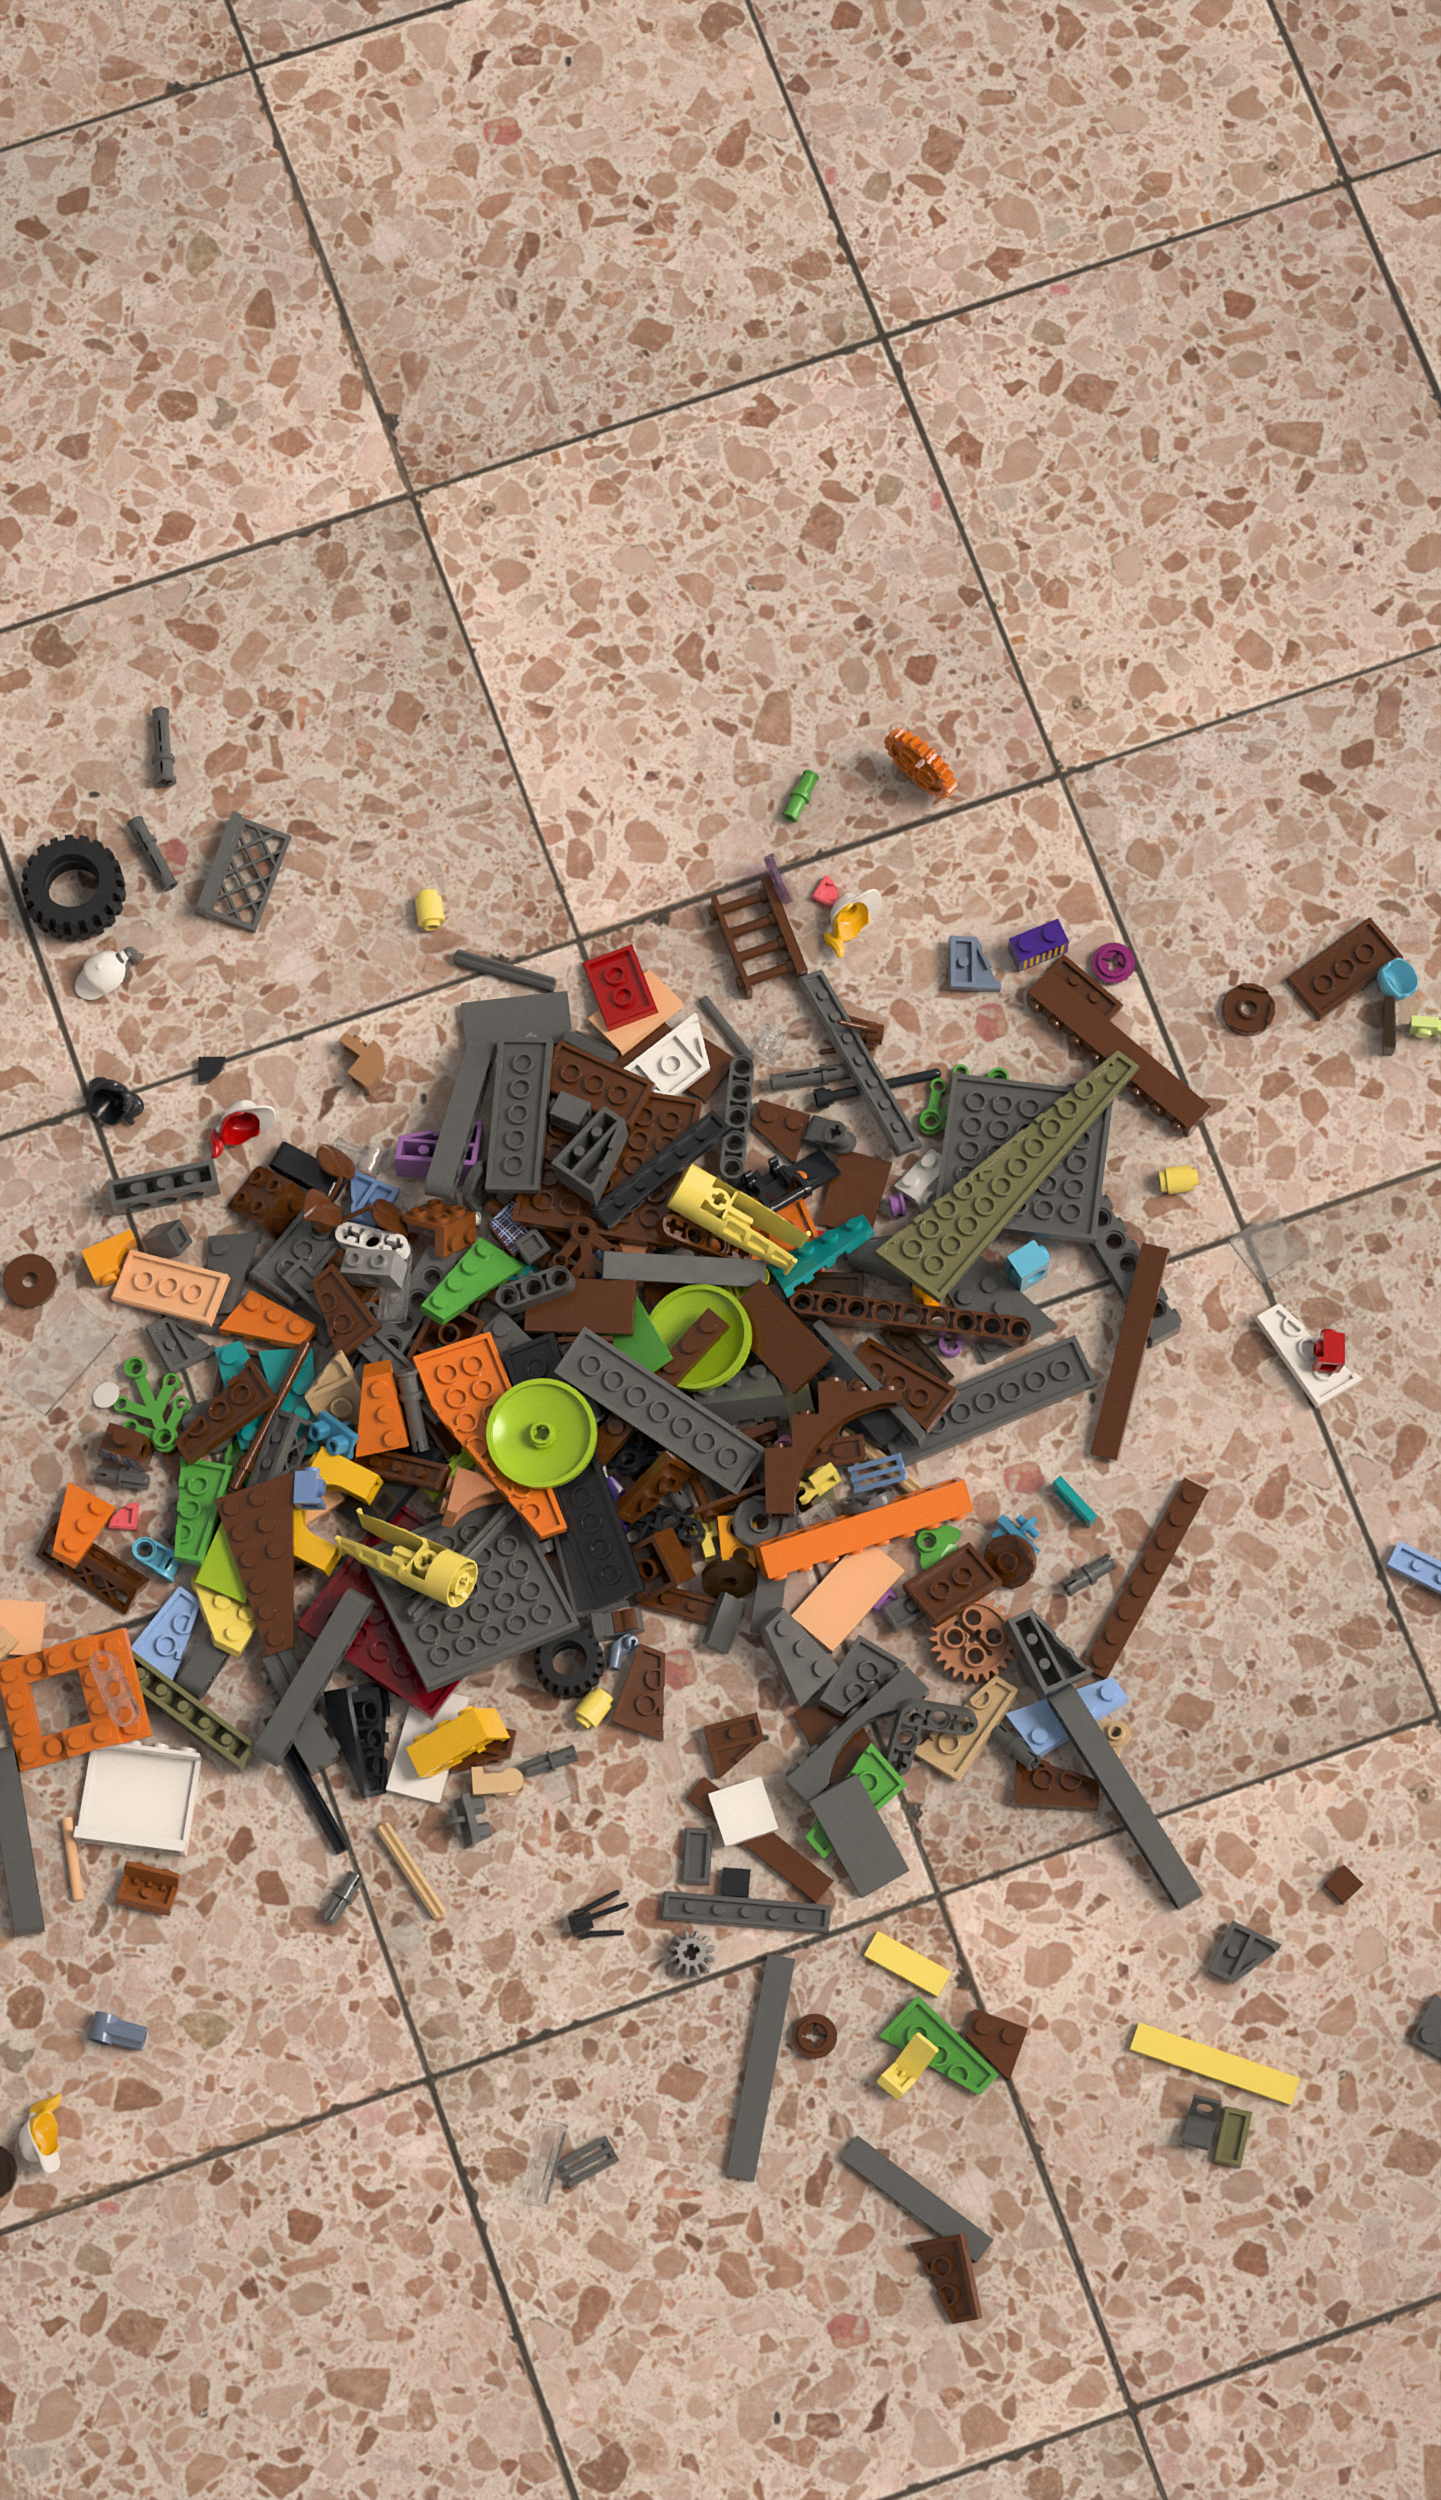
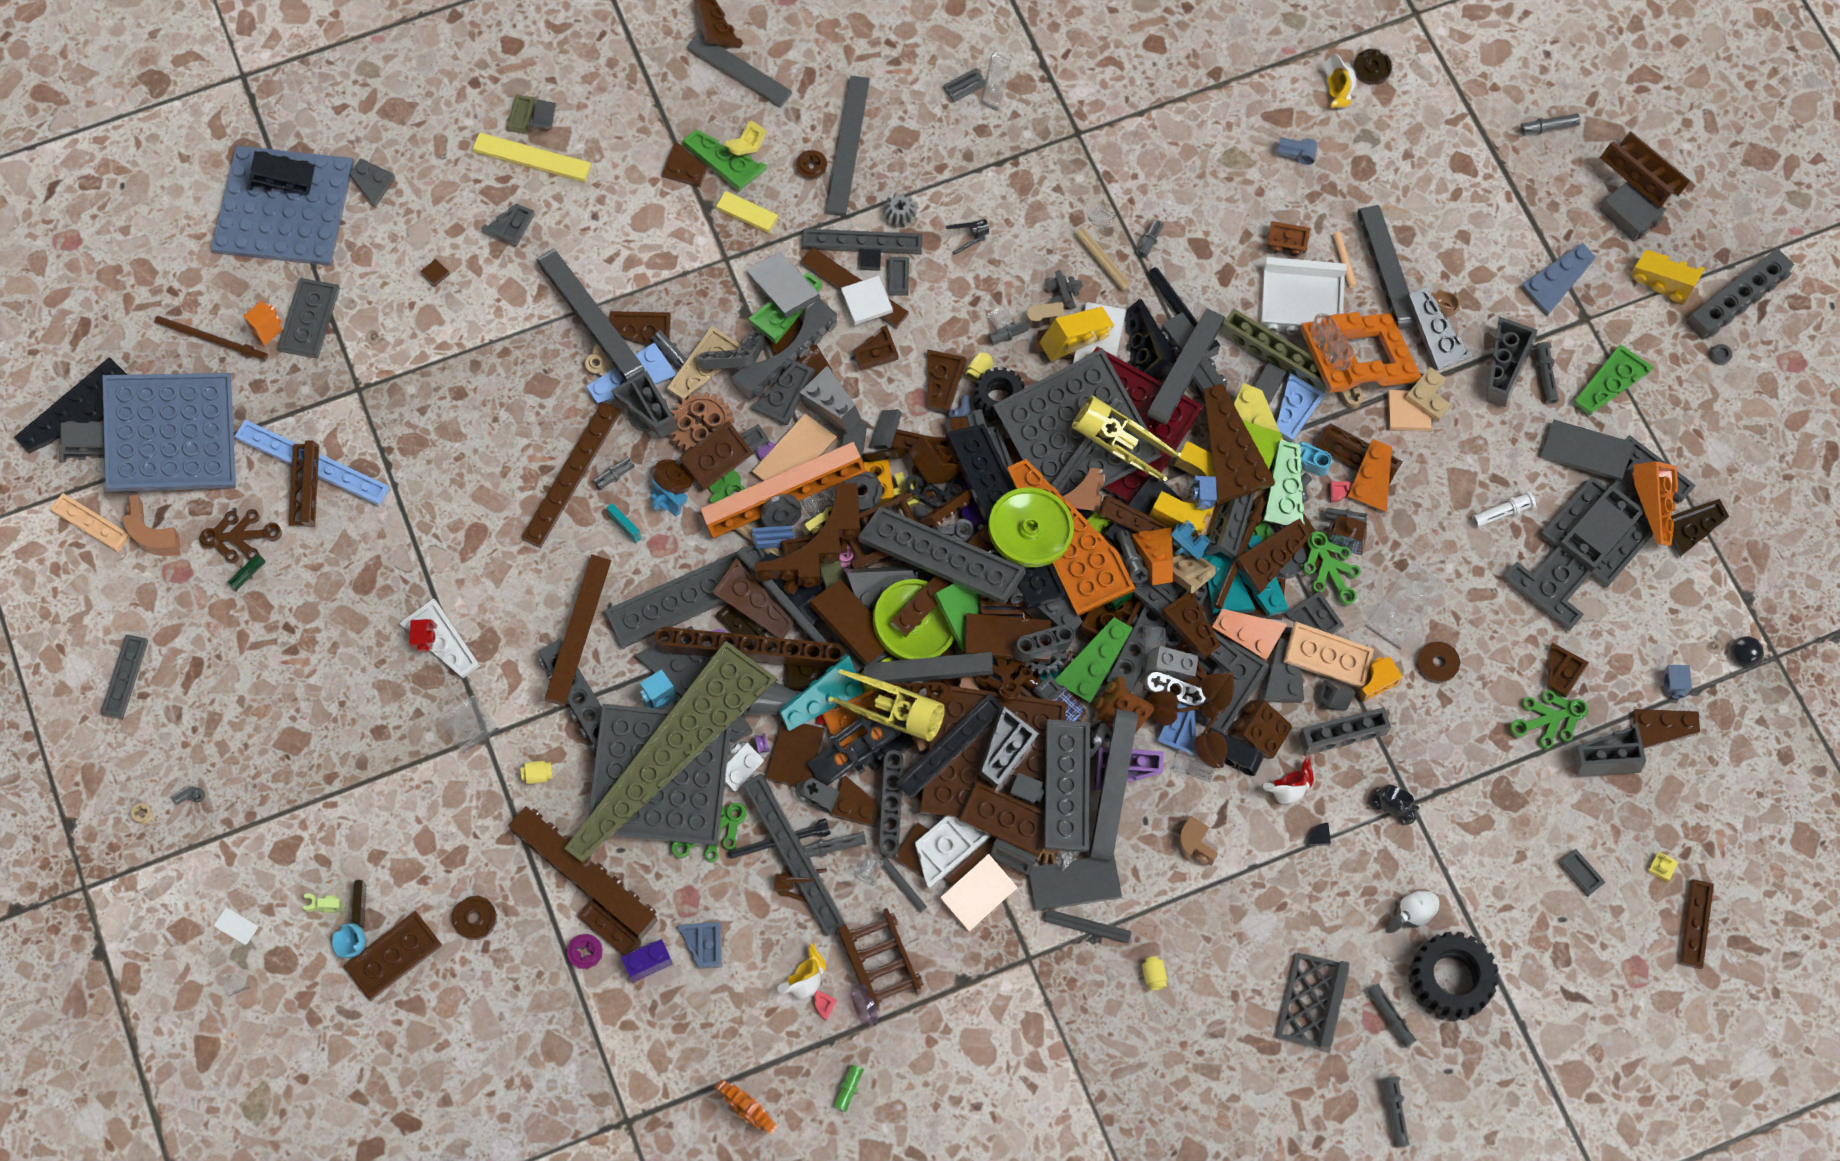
camera: 175 degrees right, 5 degrees down
(106, 1394) = (1367, 579): white sticker -> none
(620, 987) = (992, 911): red tile -> none

